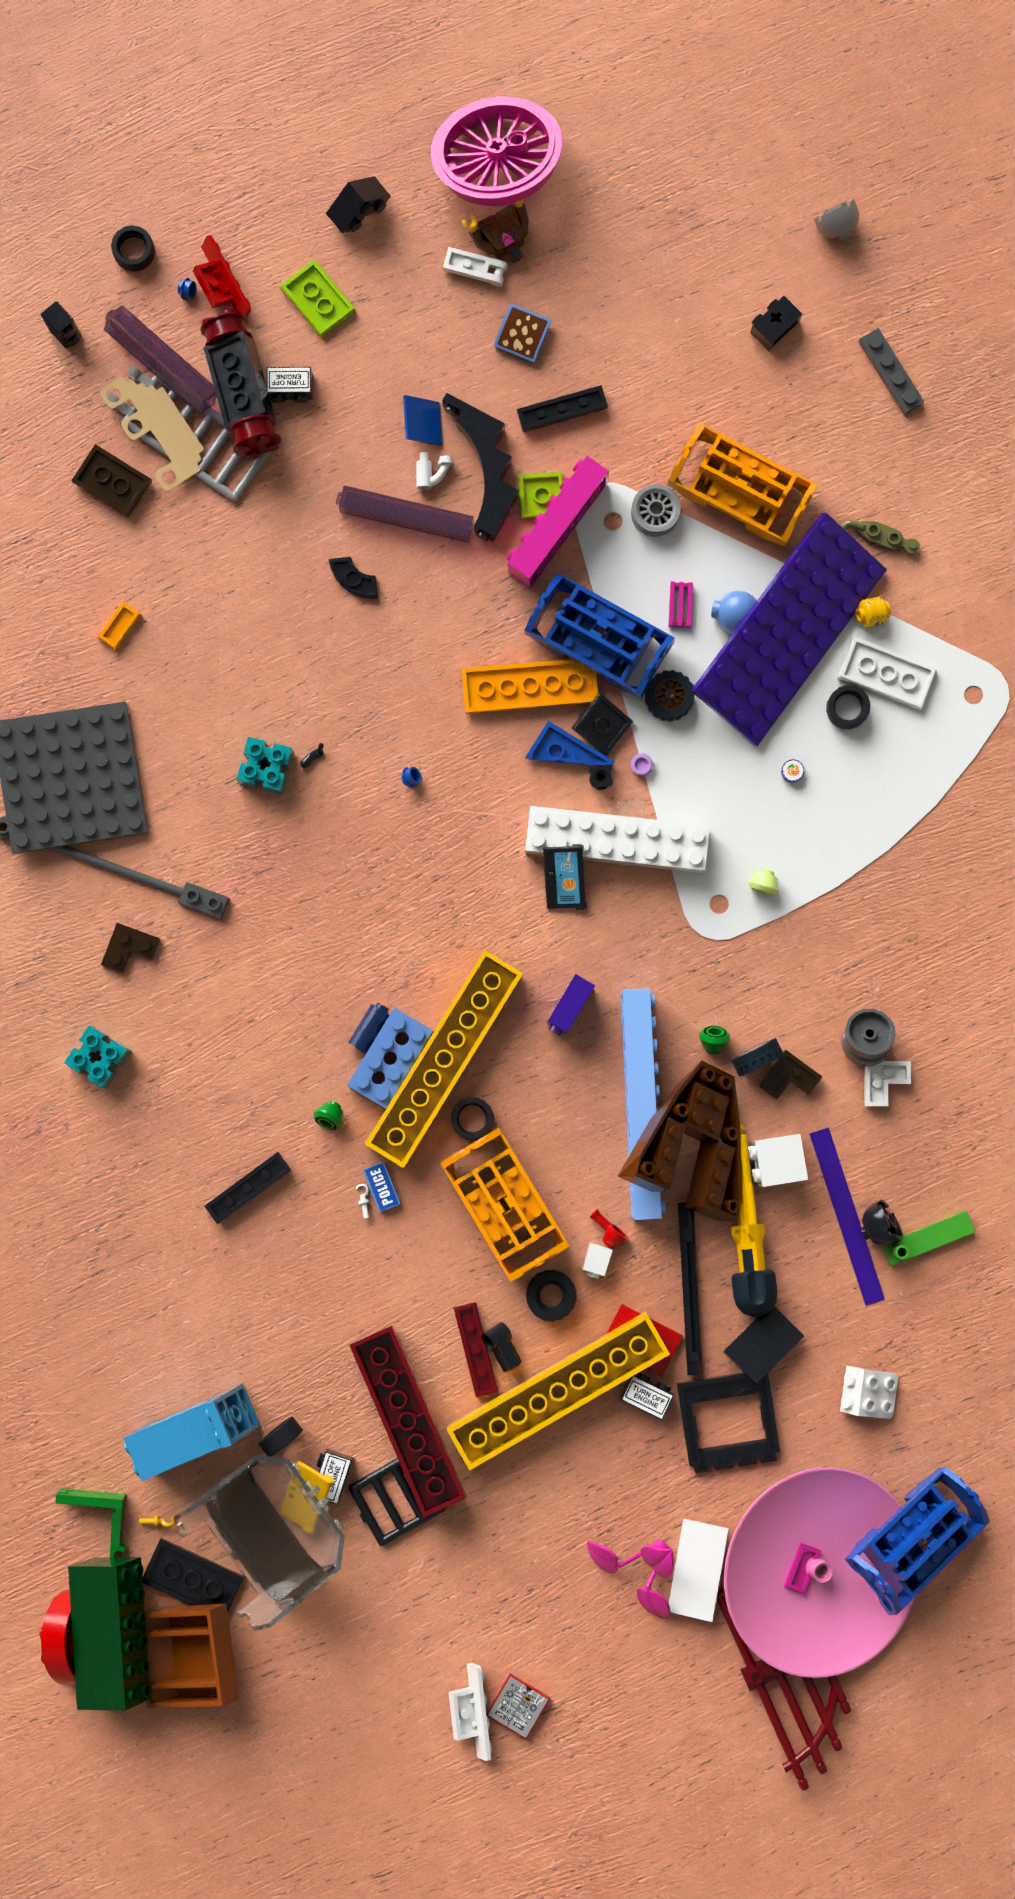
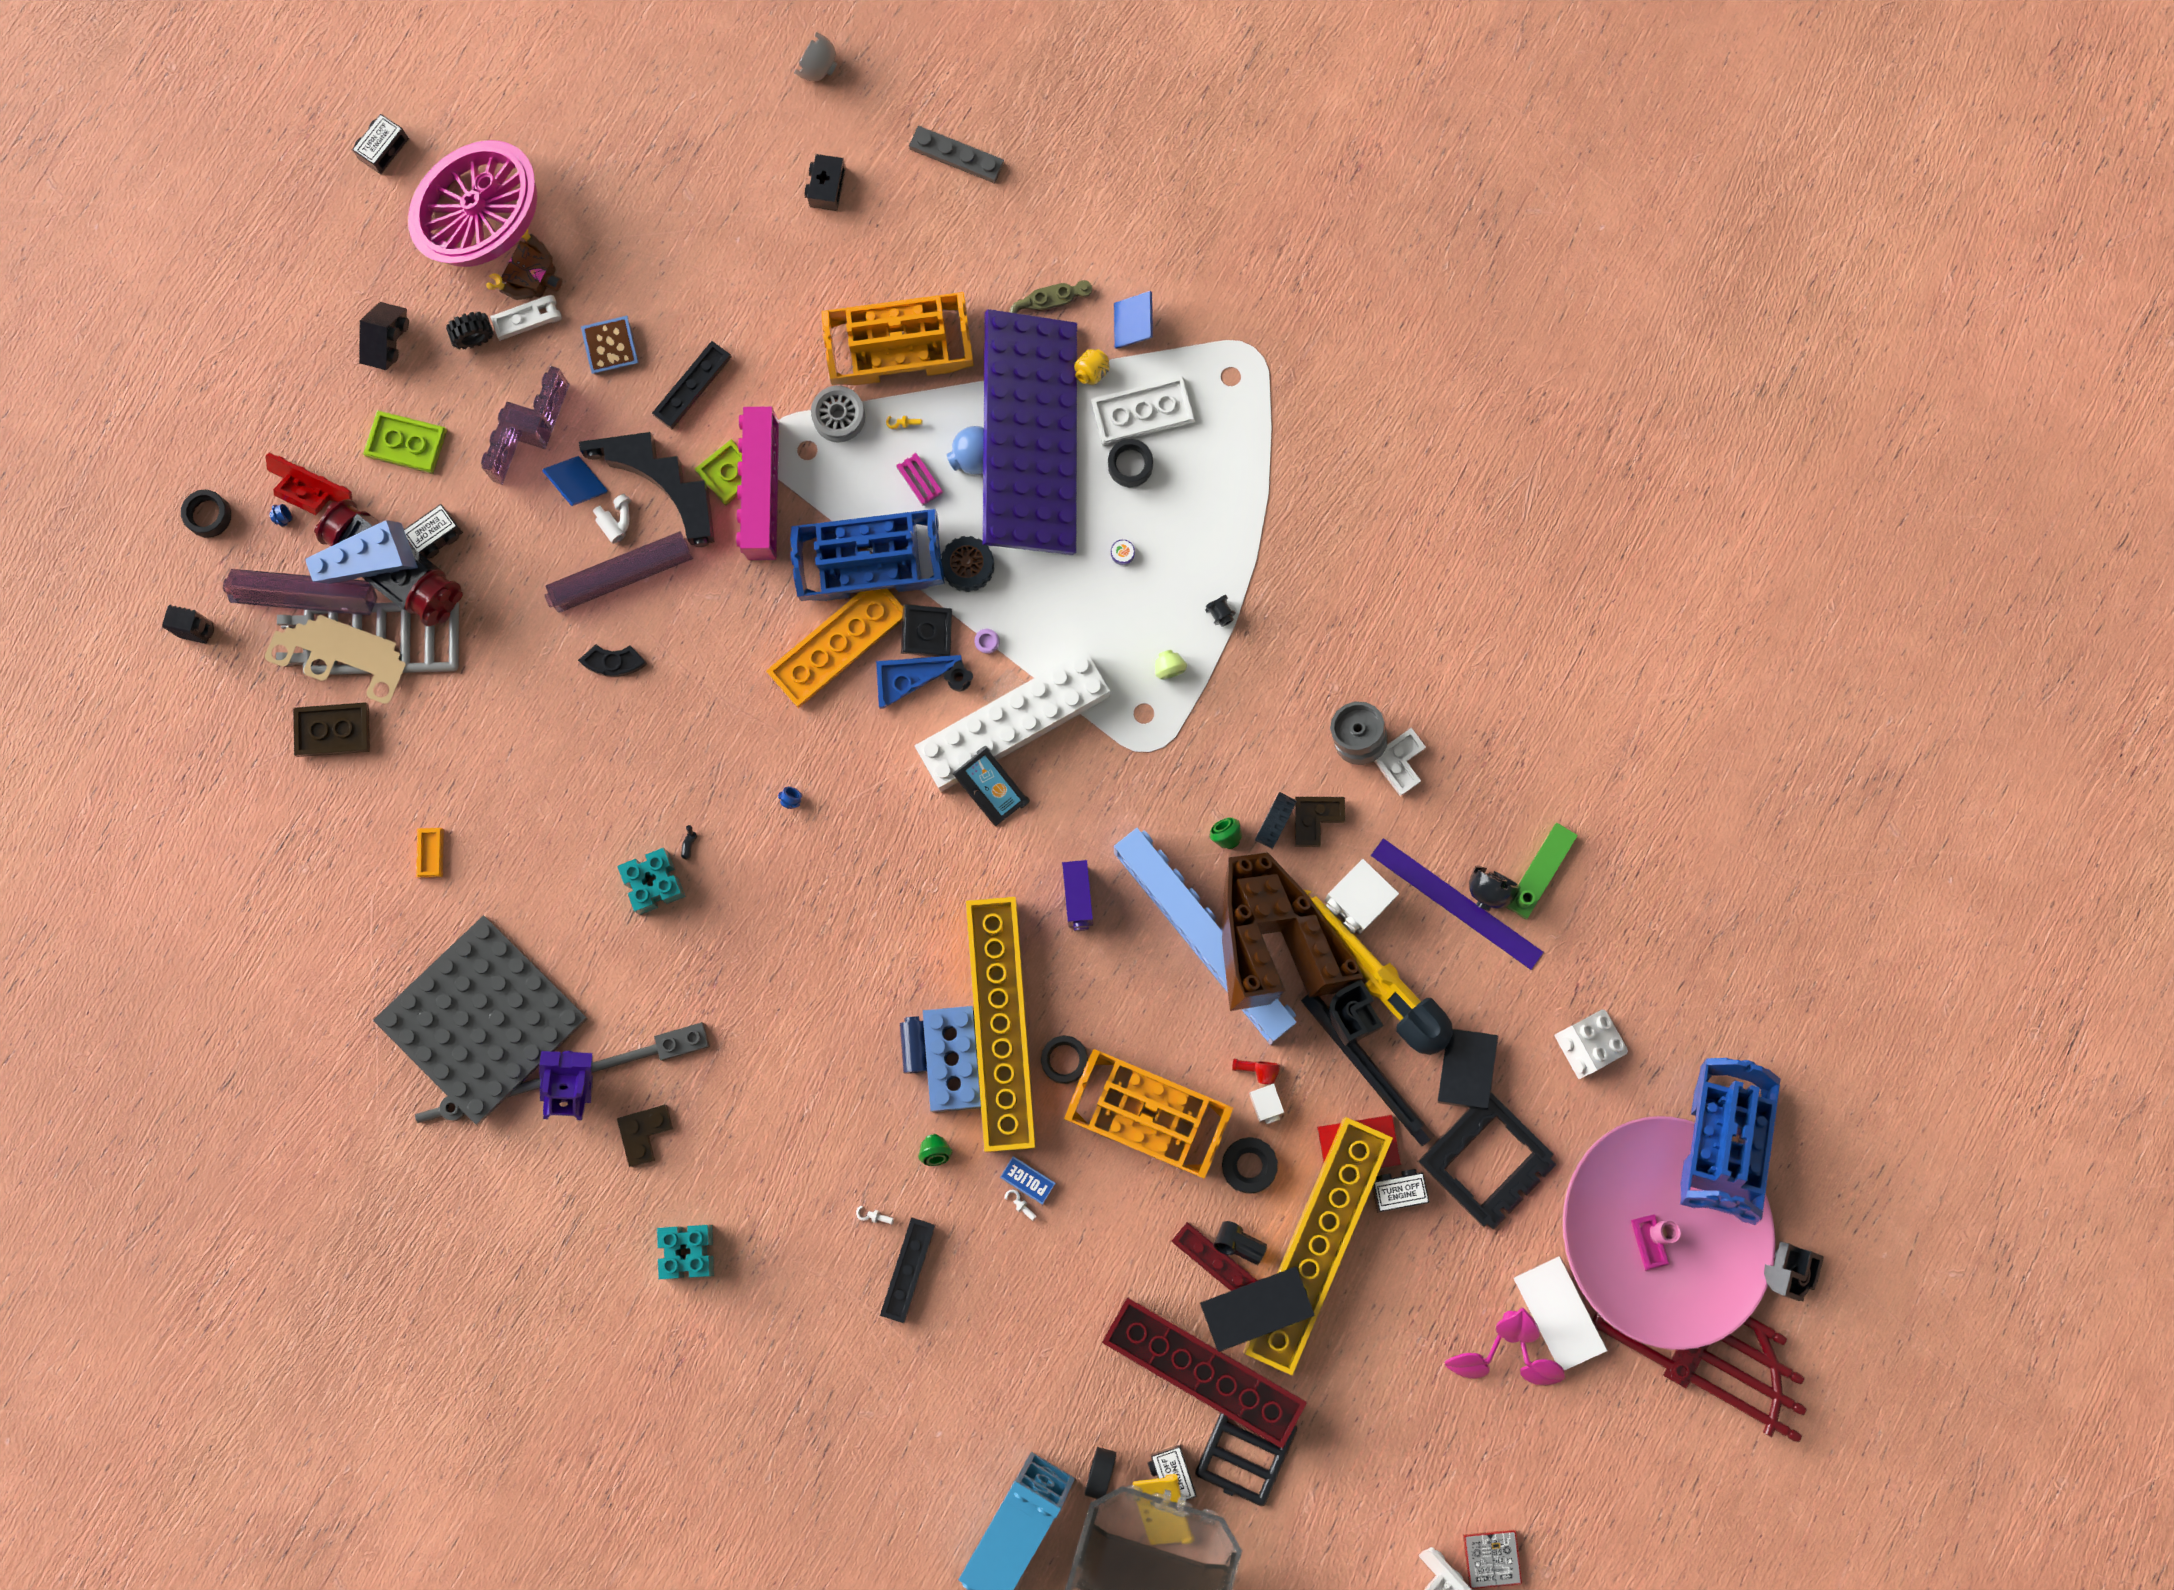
camera: 30 degrees left, 5 degrees down
(99, 868) = (565, 1079): none -> dark purple piece
(227, 367) = (368, 553): none -> wedge
(252, 1131) = (875, 1216): none -> white hand
(415, 351) = (525, 425): none -> clear purple bracket
(425, 247) = (469, 330): none -> black tyre
(460, 51) = (380, 143): none -> brick
(478, 1404) = (1257, 1309): none -> black tile
(701, 552) = (904, 422): none -> yellow hand
(708, 1242) = (1353, 1014): none -> black brick
(833, 869) = (1220, 611): none -> black brick
(892, 1667) = (1793, 1271): none -> black brick
(931, 598) = (1133, 320): none -> piece

